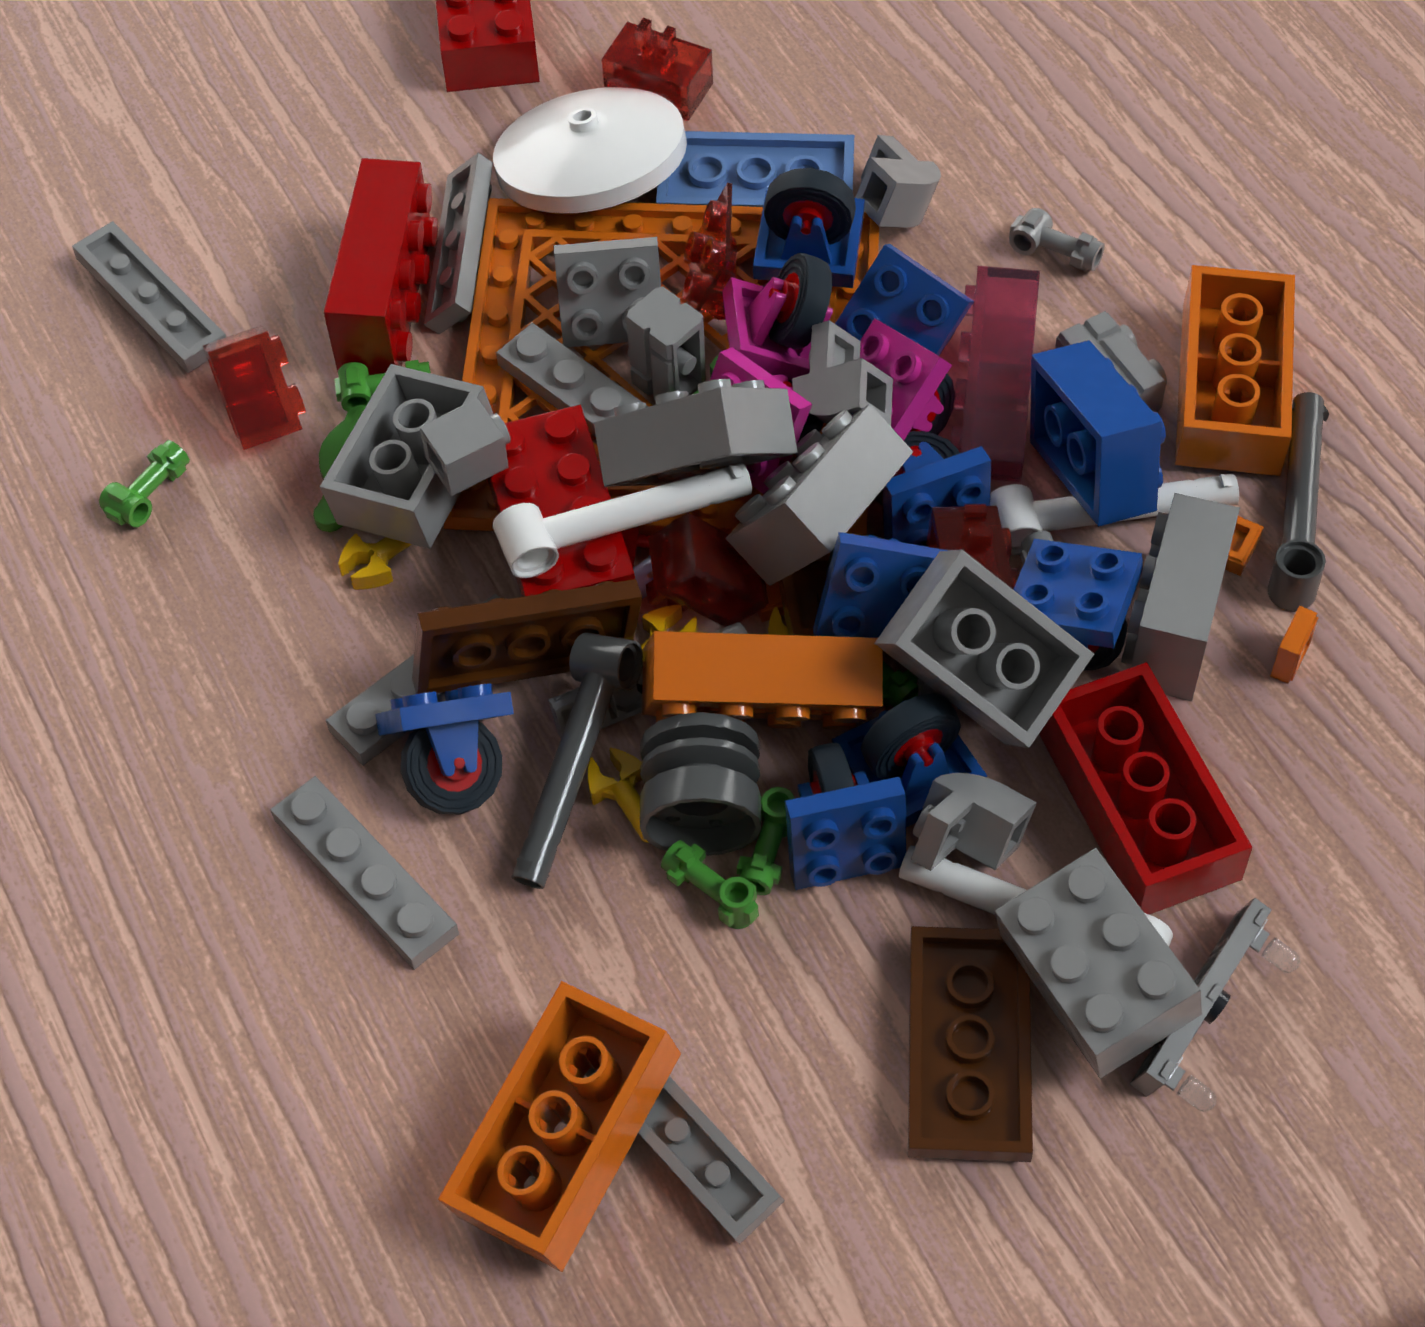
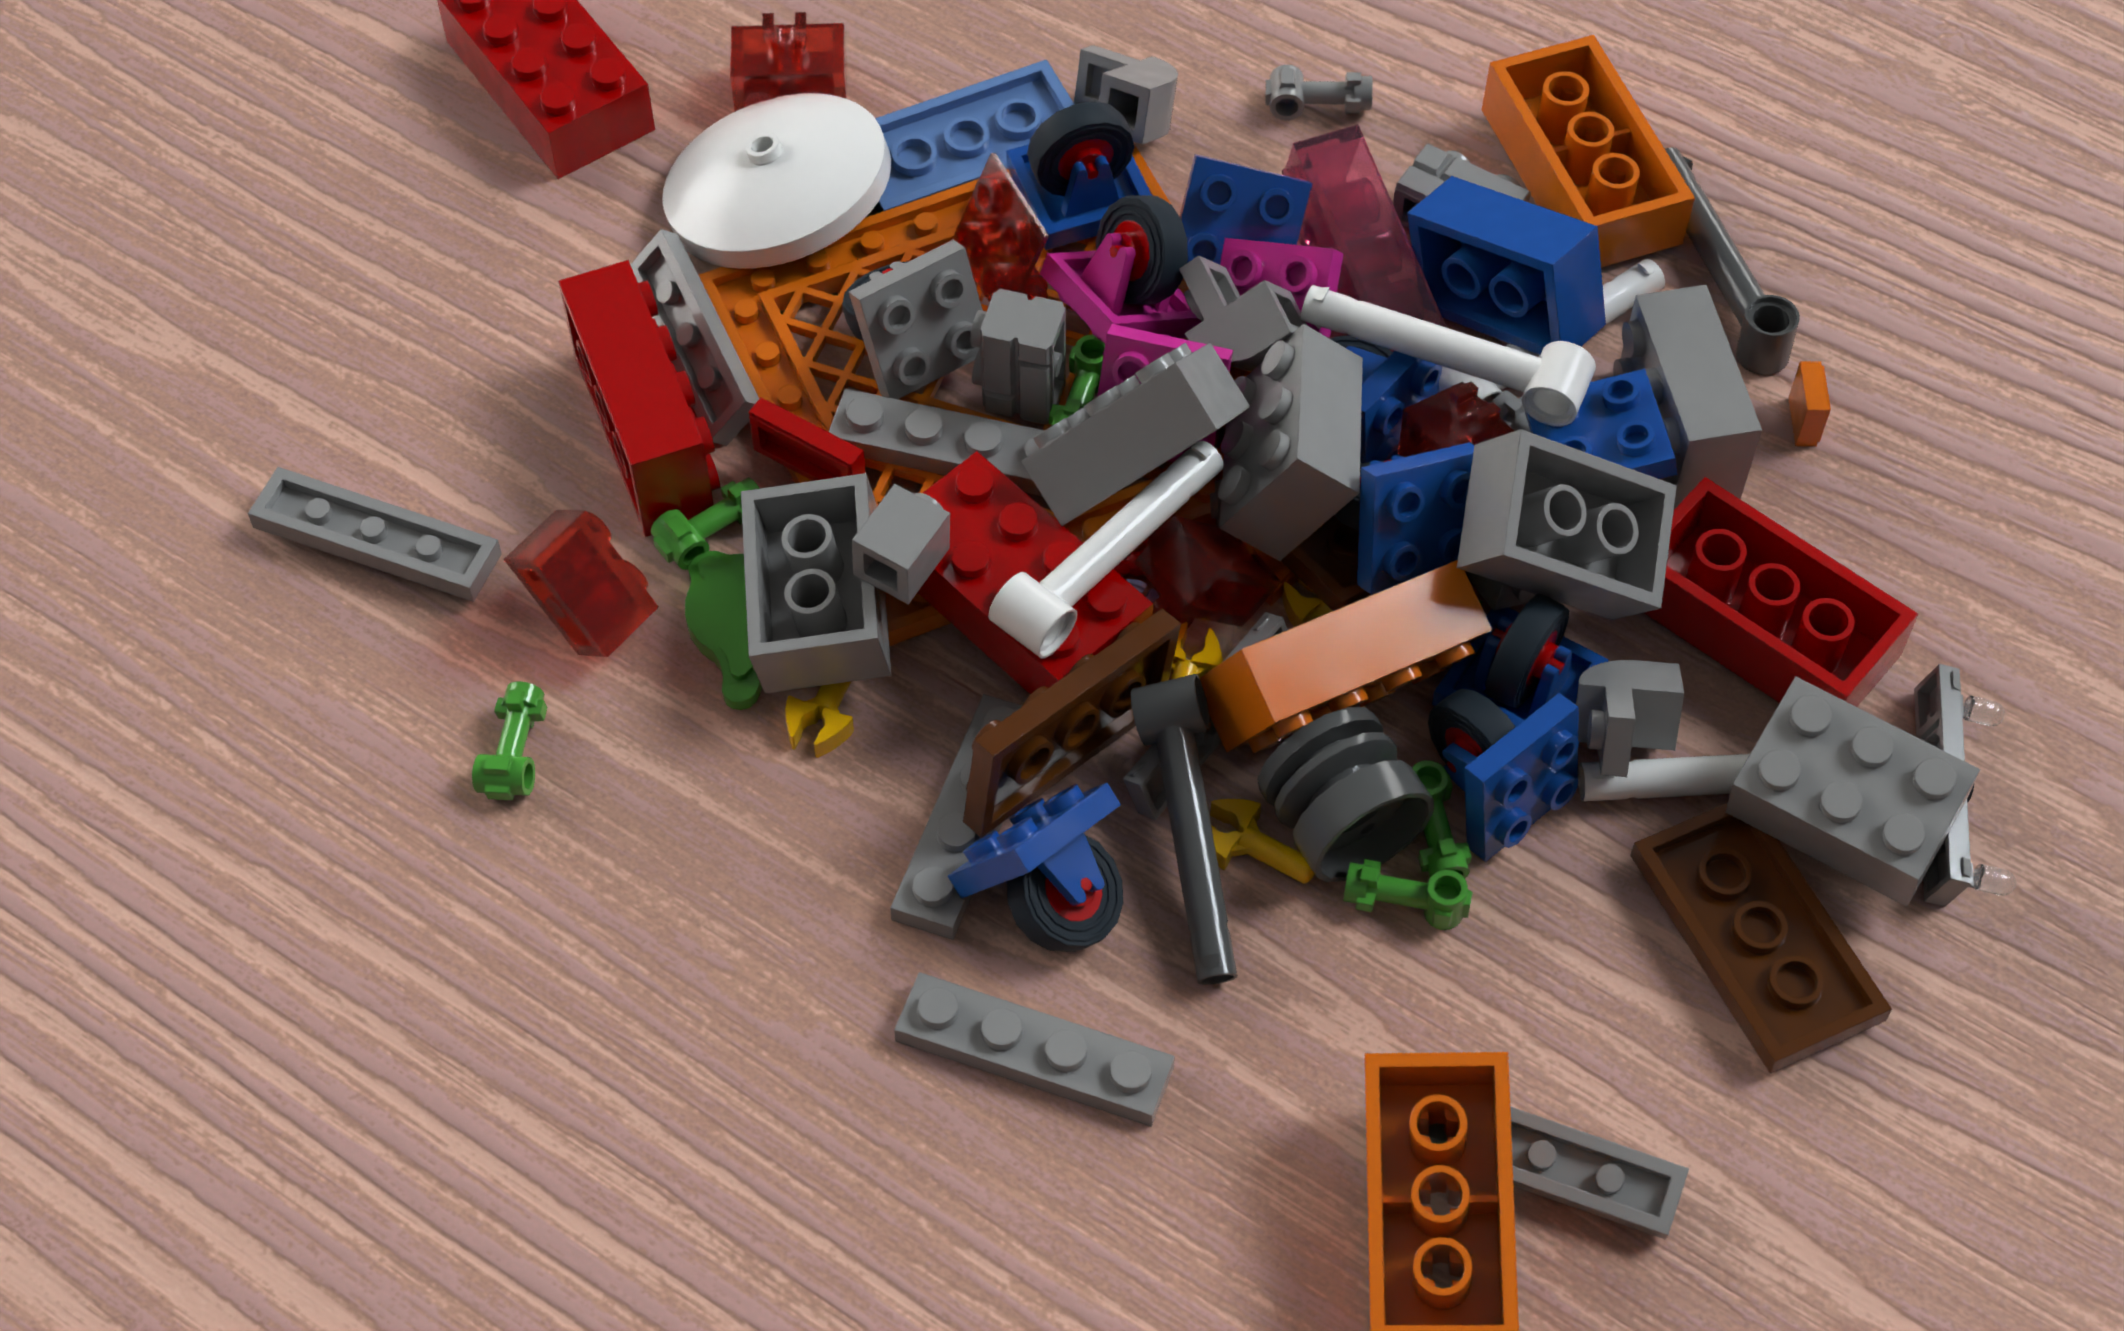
camera: 30 degrees left, 0 degrees up
(473, 354) = (802, 444): none -> red tile
(1045, 532) = (1550, 383): none -> white piece

